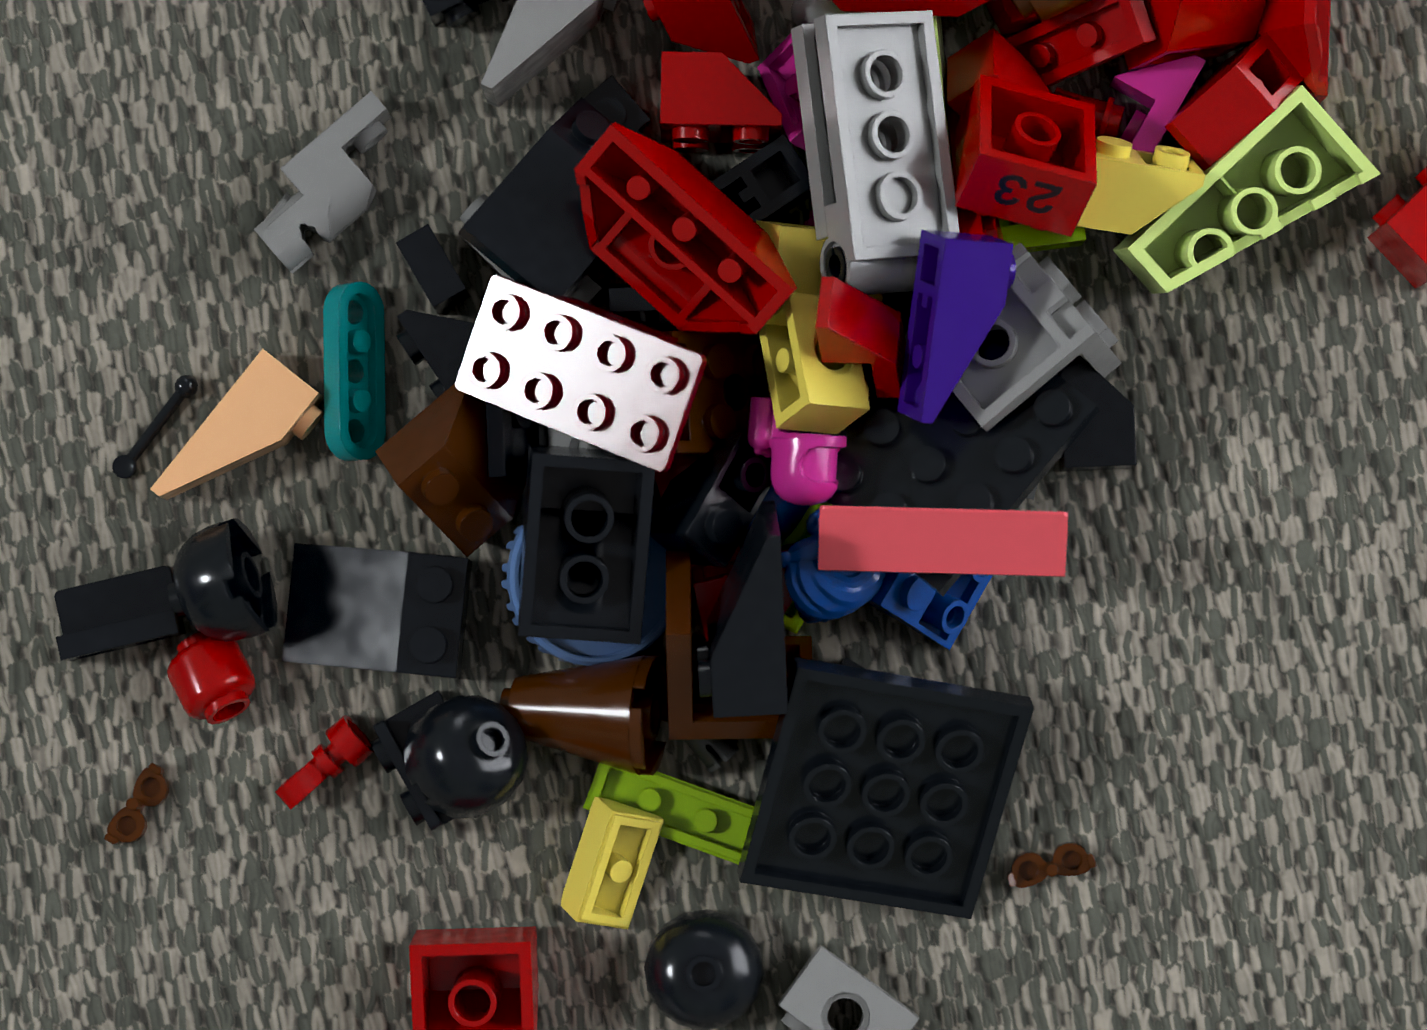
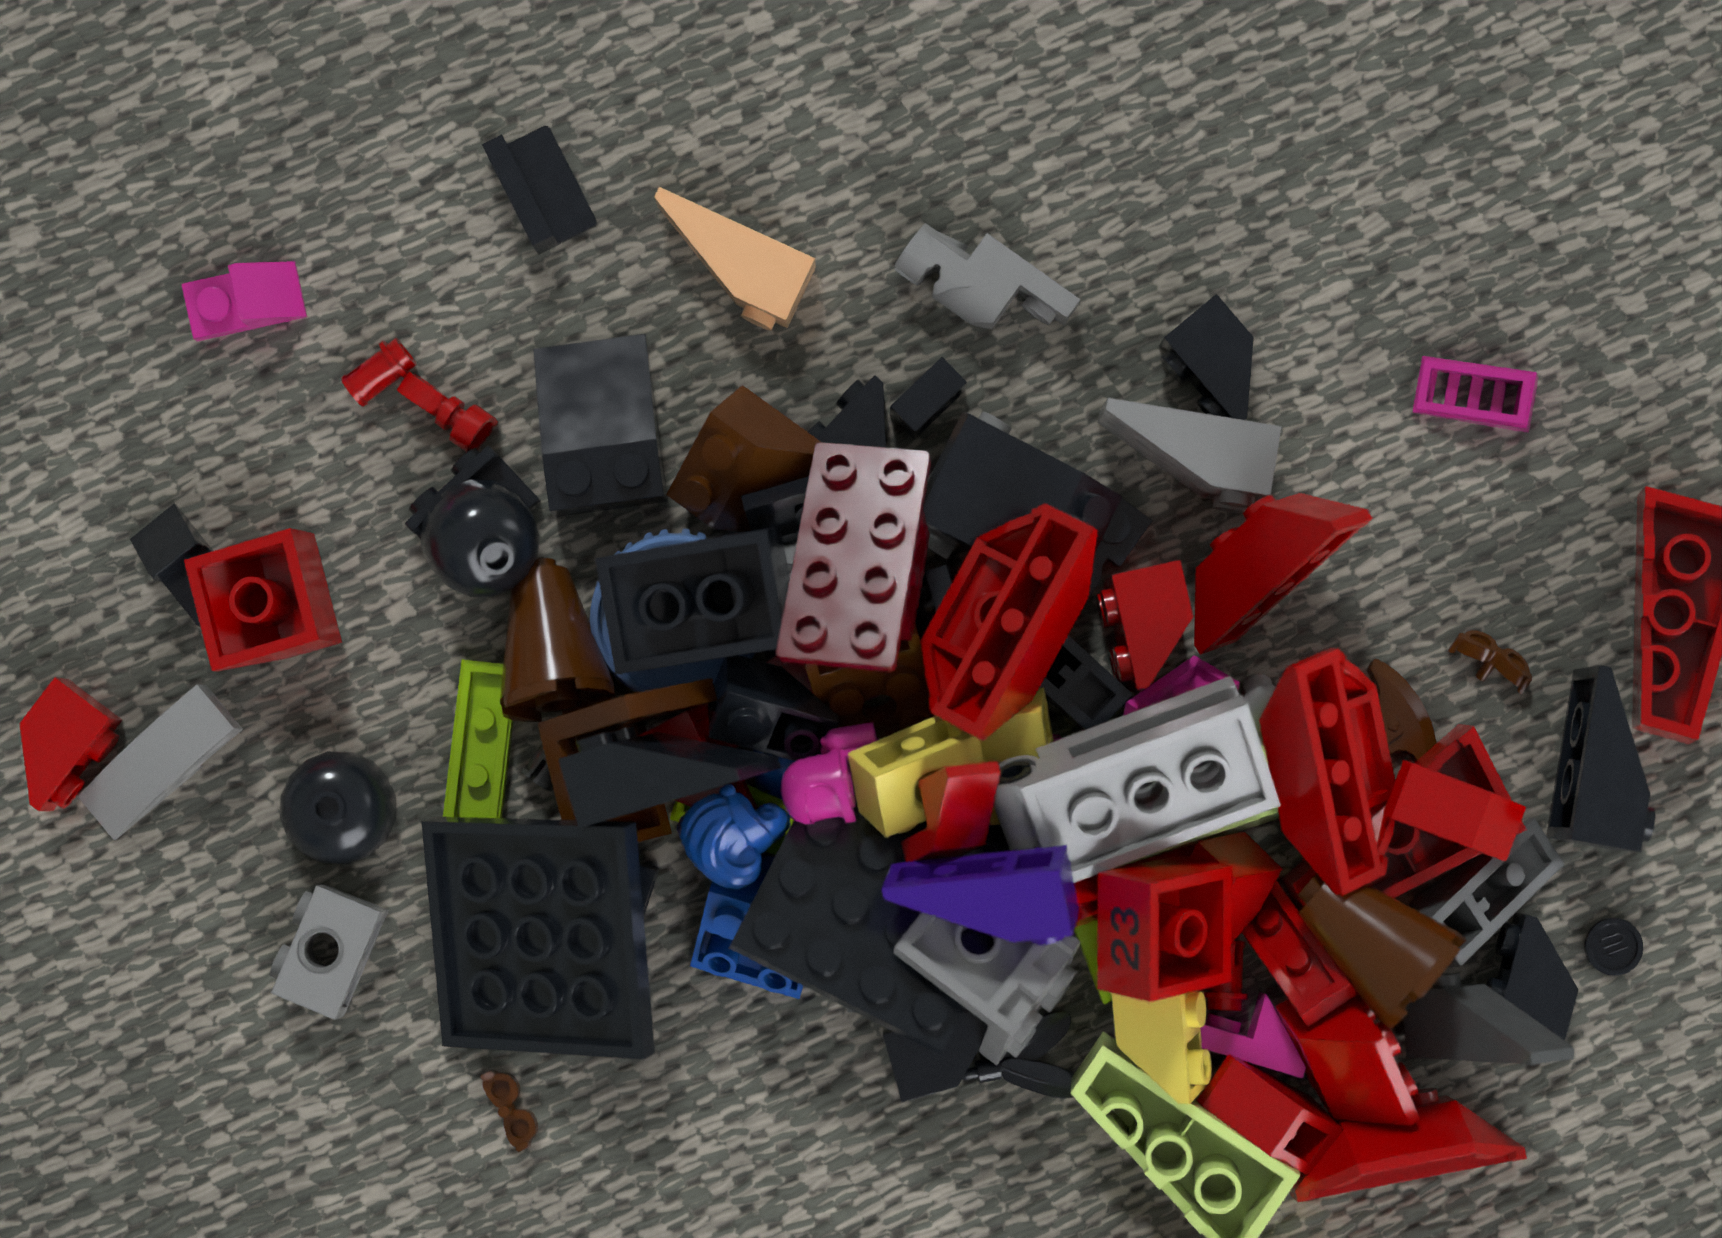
camera: 80 degrees right, 0 degrees up
(125, 465) = (680, 161): black hinge -> none
(130, 823) = (352, 247): reddish brown piece -> none
(157, 946) = (244, 299): none -> dark pink slope
(211, 678) = (500, 287): red head -> none
(221, 585) = (585, 275): black cylinder -> none
(267, 823) = (378, 371): none -> red pin
(354, 371) = (841, 349): teal plate -> none
(610, 864) = (415, 697): light yellow slope -> none
(942, 541) = (776, 936): coral slope -> none
(1134, 335) = (1025, 1069): none -> black piece

